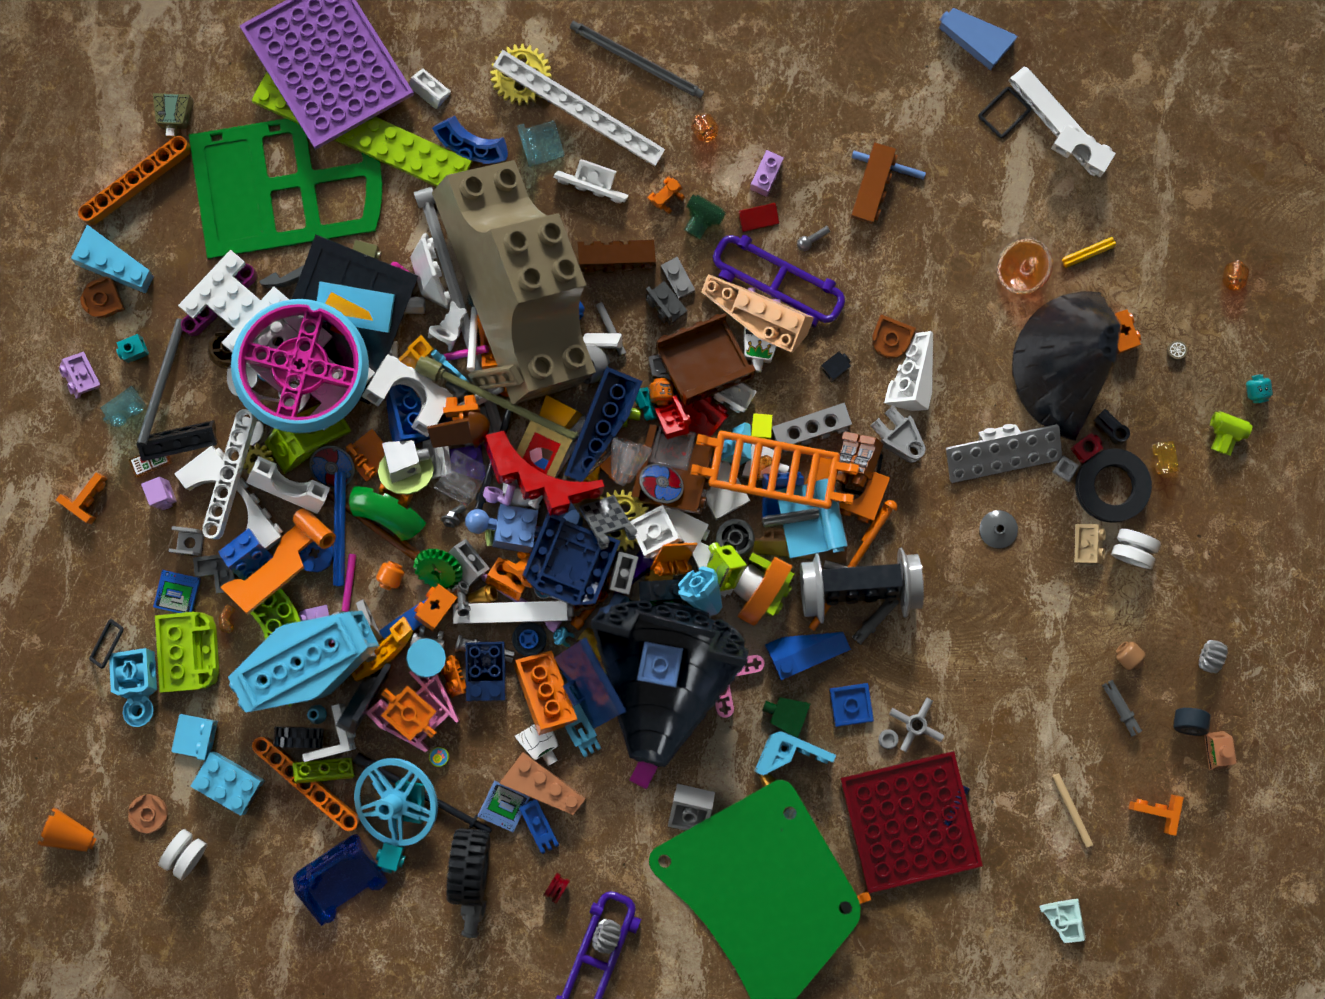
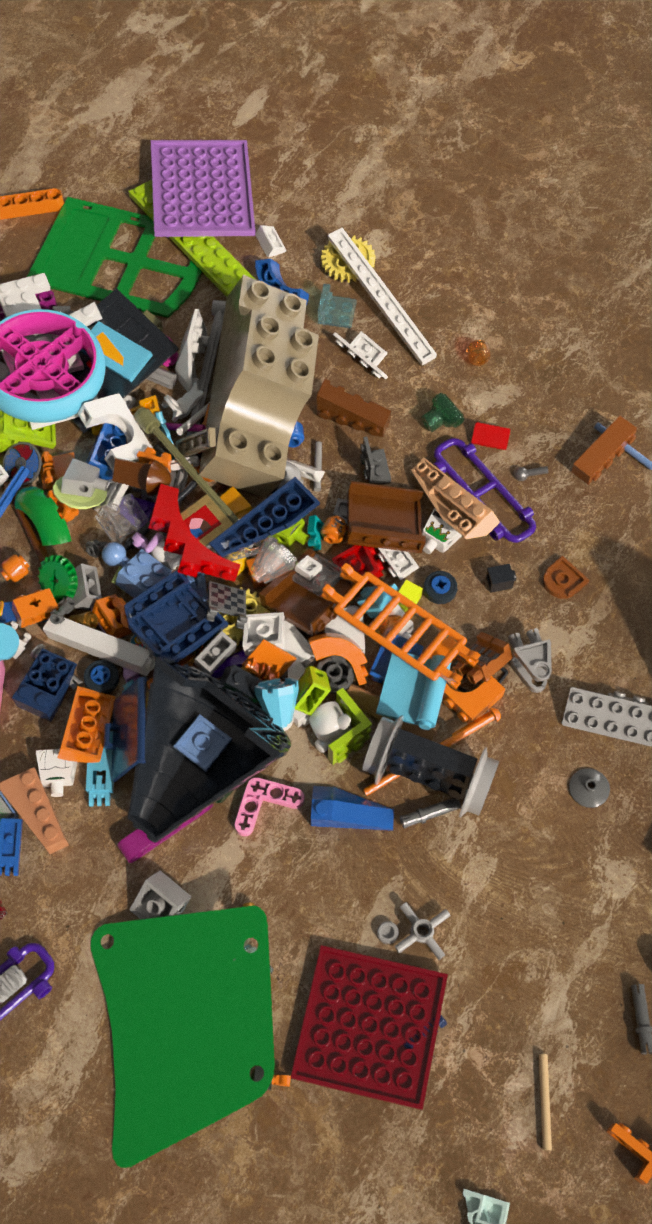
camera: 25 degrees right, 20 degrees down
(172, 112) = (66, 175): torso -> none
(300, 282) = (87, 314): none -> white plate
(454, 685) = (17, 672): orange hinge -> none
(638, 60) = (445, 284): dark grey piece -> none
(661, 483) = (291, 594): shield -> none
(662, 449) = (308, 567): none -> white plate
(666, 194) = (420, 387): orange piece -> none
(673, 419) = (332, 552): red bracket -> none
(677, 278) = (396, 453): light grey plate -> none
(730, 511) = (340, 645): none -> orange arch
(765, 592) = (335, 728): orange slope -> none
(766, 173) = (514, 406): lavender brick -> none
(773, 757) = (265, 890): medium azure bracket -> none
(780, 405) = (435, 592): none -> black wheel
(787, 714) = (301, 859): dark green torso -> none
(791, 517) = (394, 676): dark grey axle -> none
(837, 413) = (463, 612): light grey brick -> none
(851, 704) = (367, 882): blue tile -> none
(913, 382) = (569, 620): white wedge -> none

